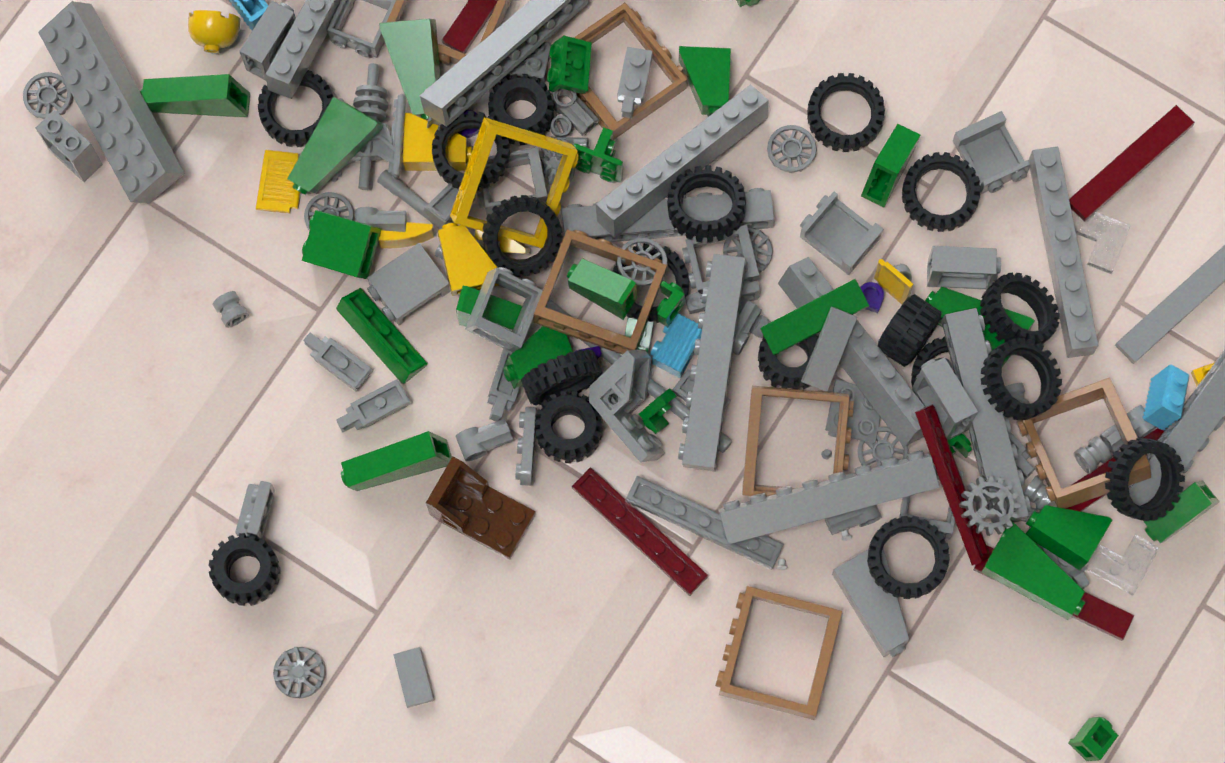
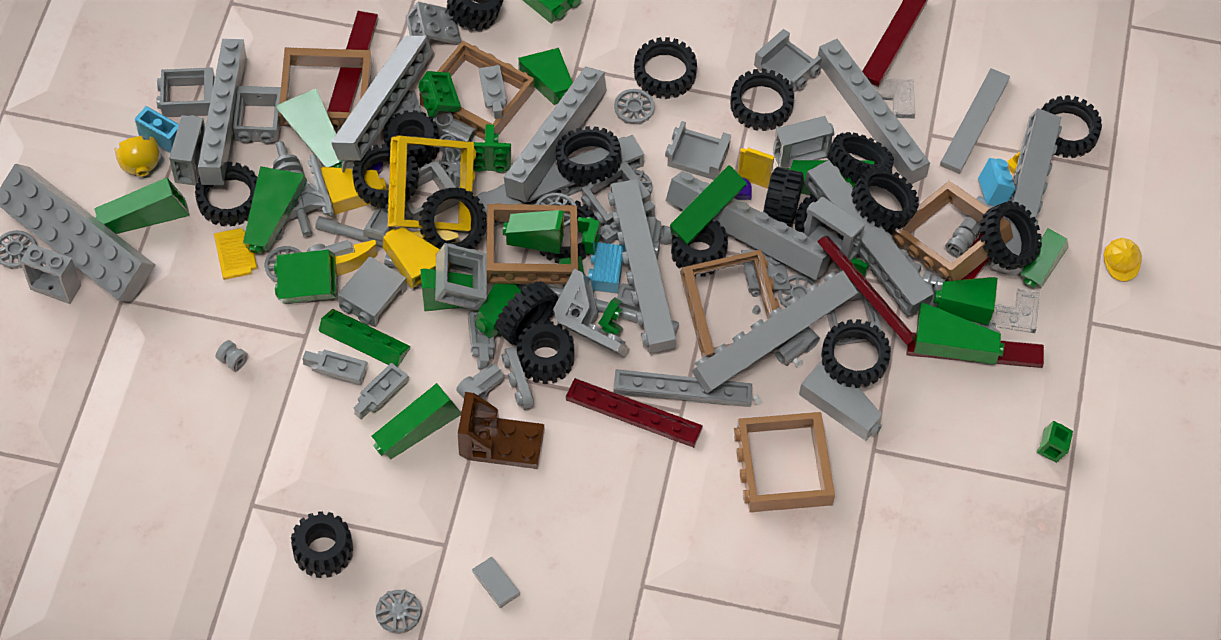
camera: 25 degrees left, 15 degrees down
(255, 509) = (312, 494): light grey bracket -> none
(829, 349) = (729, 223): light grey tile -> none
(890, 165) = (715, 93): green slope -> none
(997, 513) = (902, 292): light grey gear -> none

